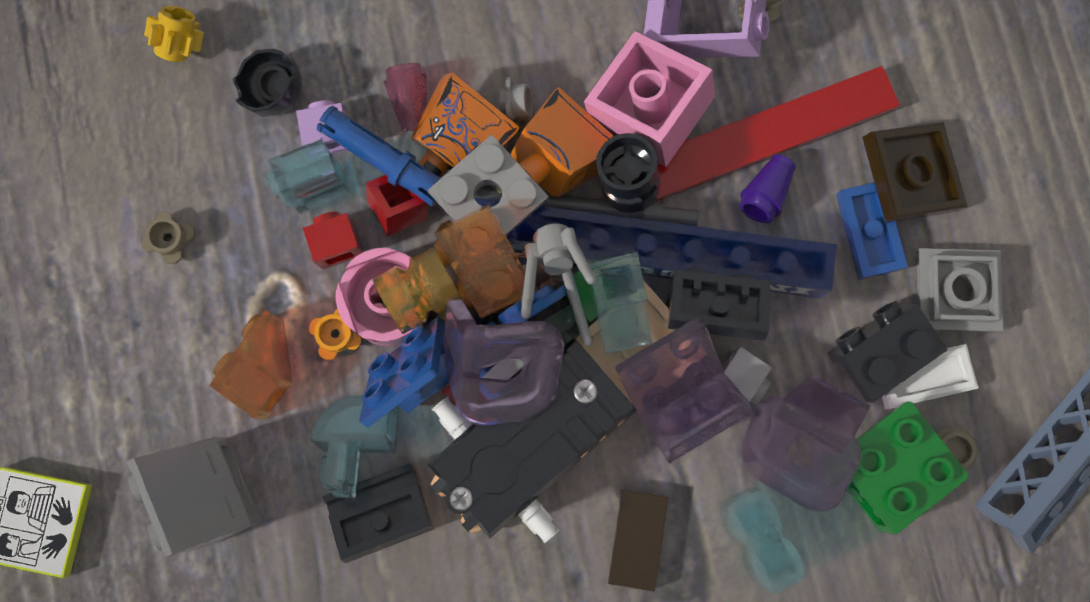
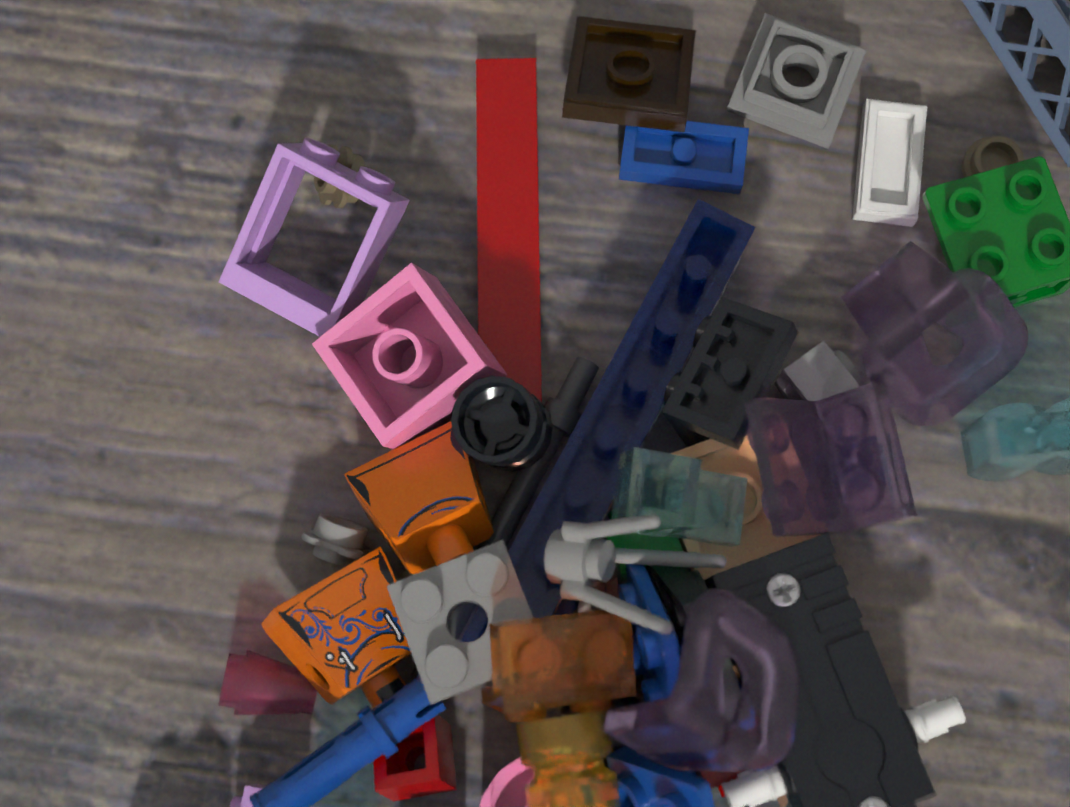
camera: 70 degrees left, 5 degrees down
(638, 540) = (984, 599): dark brown tile -> none
(768, 190) = (584, 259): dark purple cone -> none
(887, 349) = (843, 193): black bracket -> none

